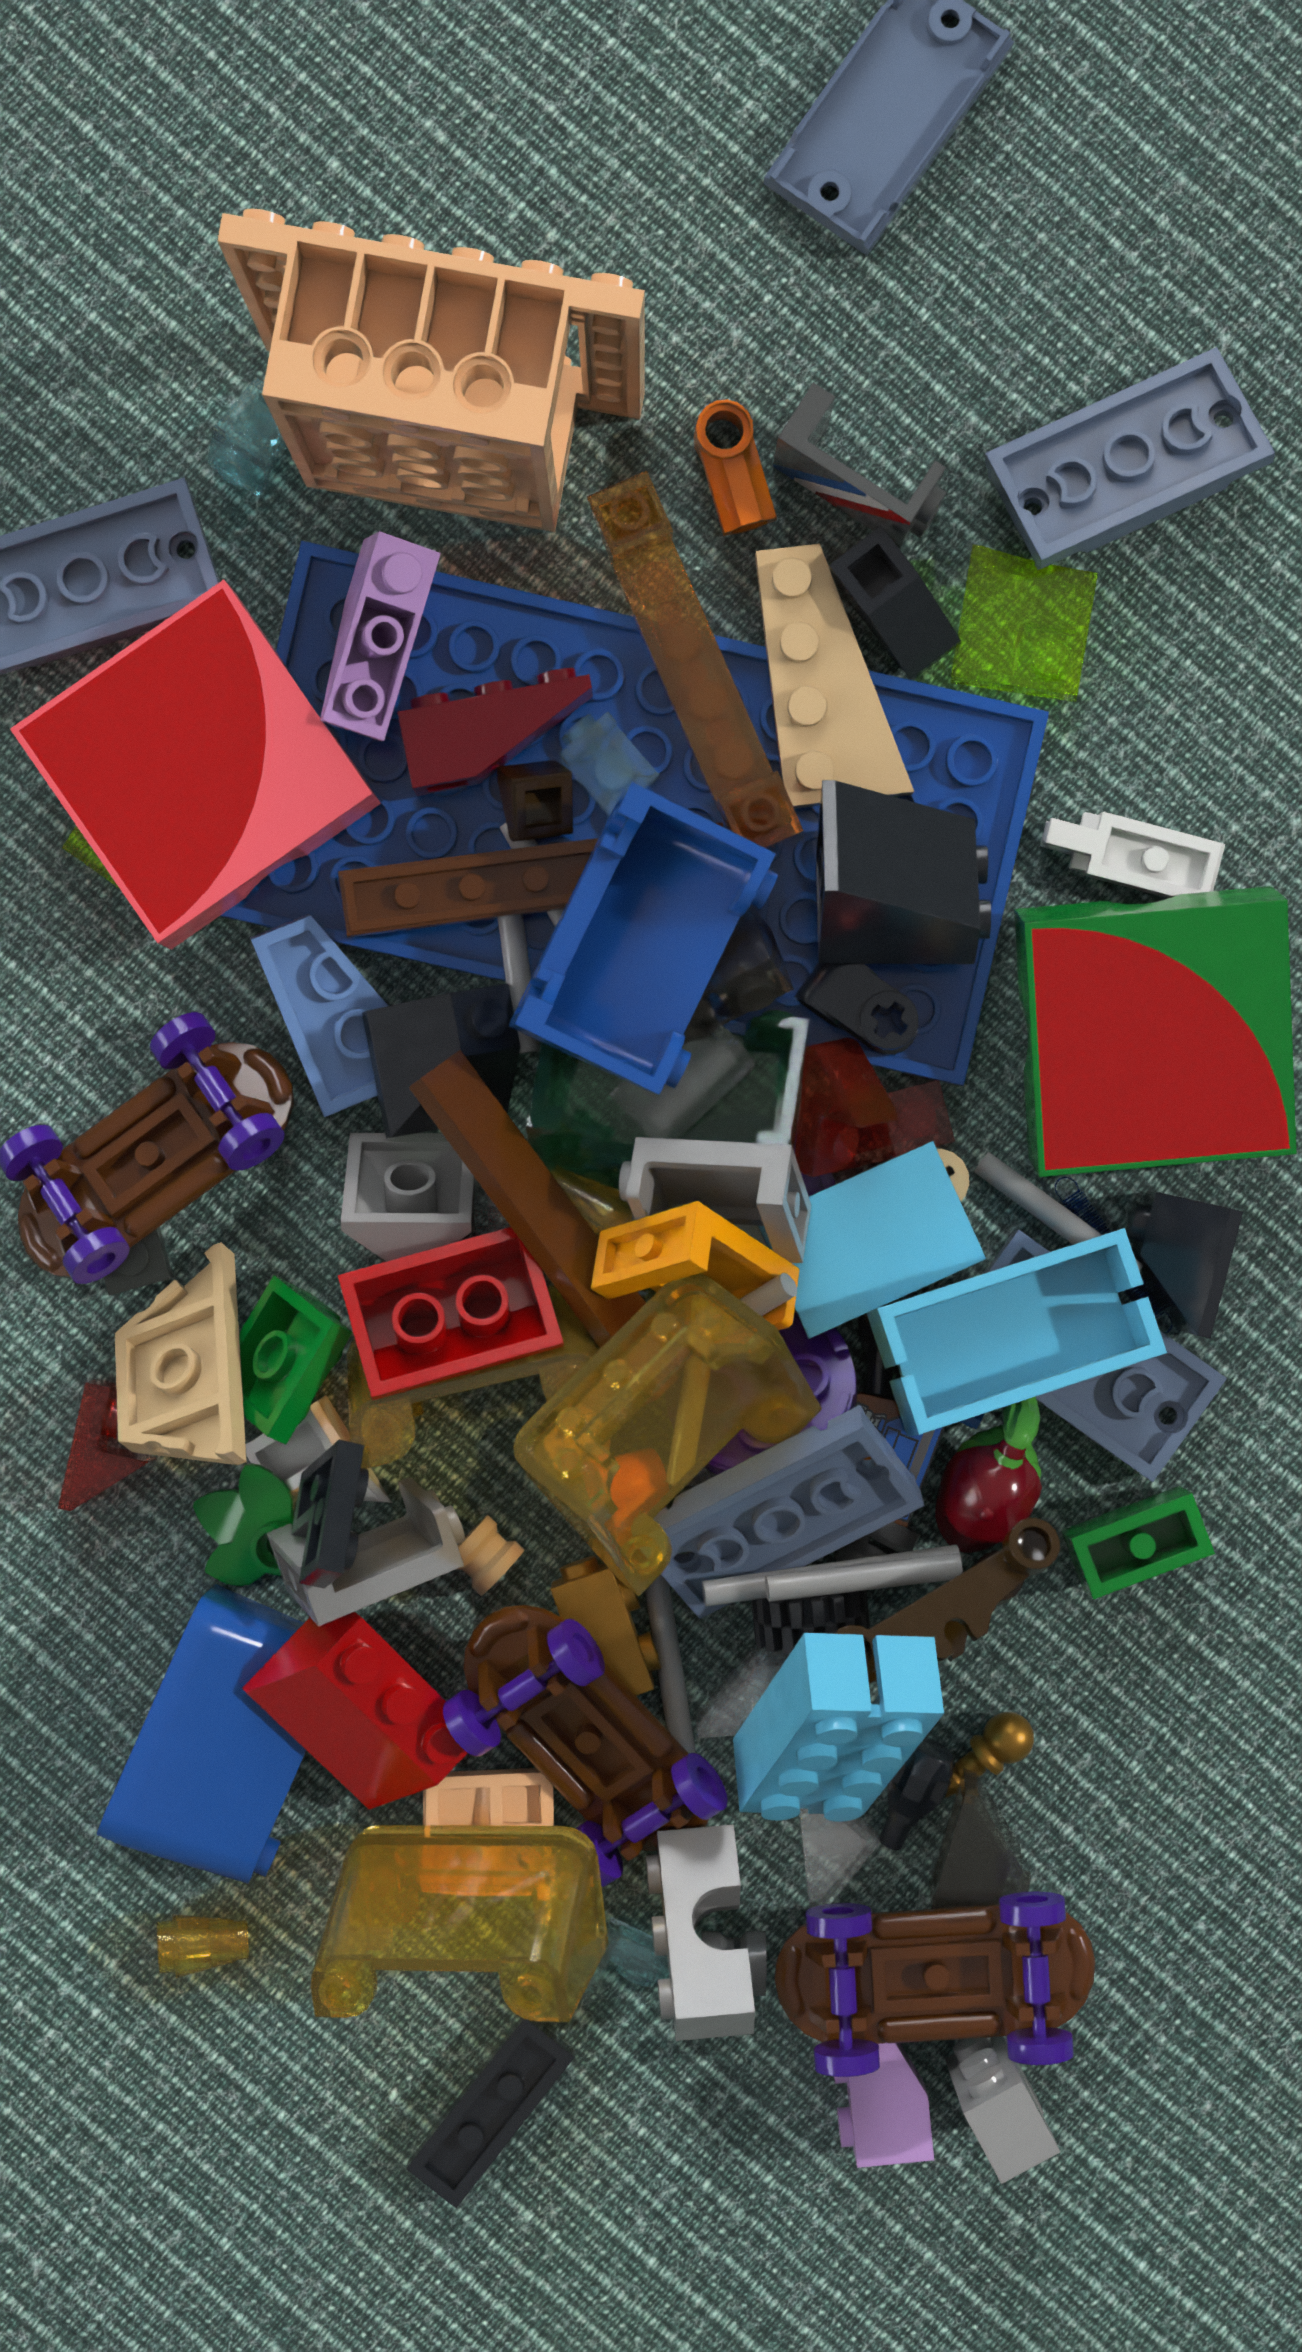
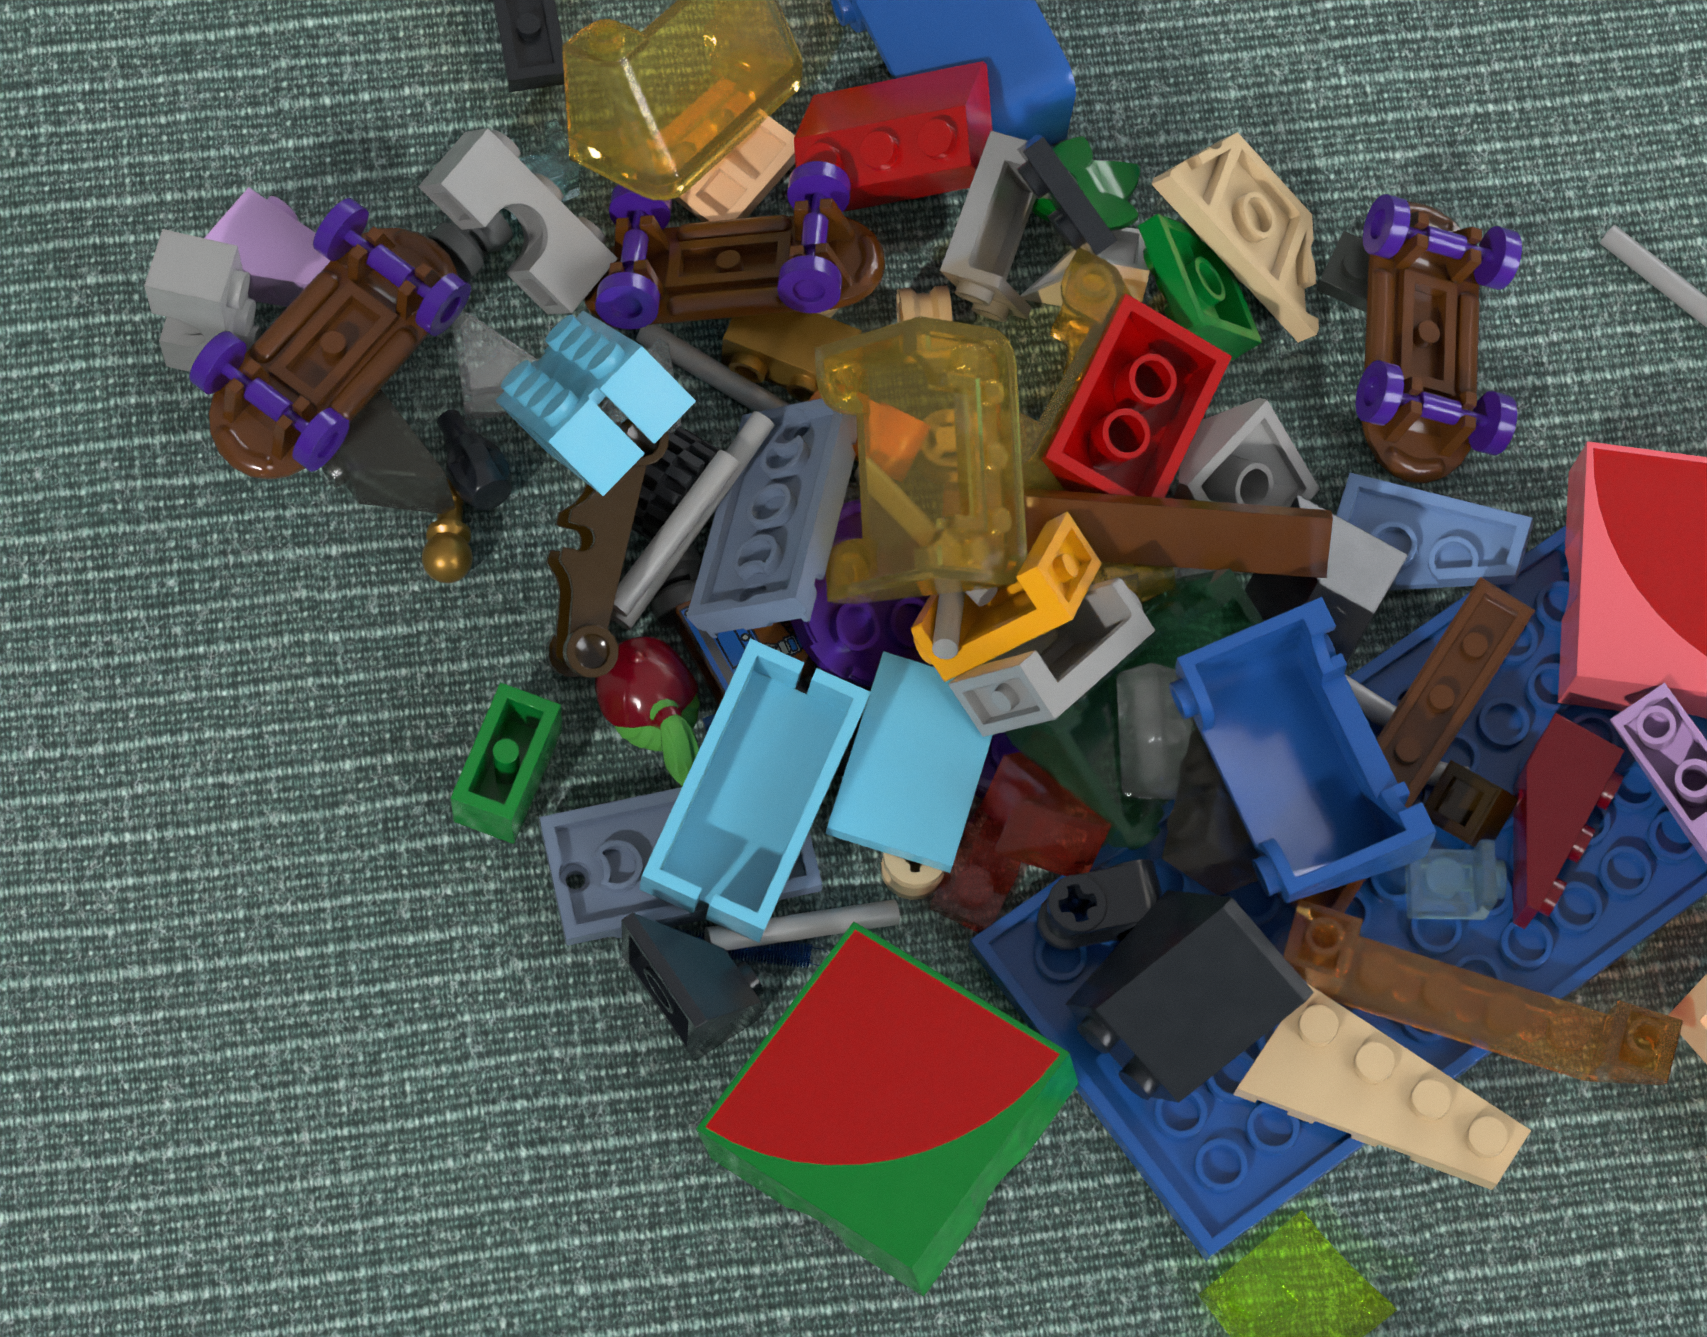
camera: 125 degrees right, 20 degrees down
(91, 1462) = (1232, 111): clear red slope -> none
(734, 473) = (1604, 1179): orange piece -> none
(843, 487) = (1591, 1235): dark grey panel -> none
(894, 603) = (1401, 1205): black slope -> none
(1136, 854) = (1033, 1231): white hinge -> none

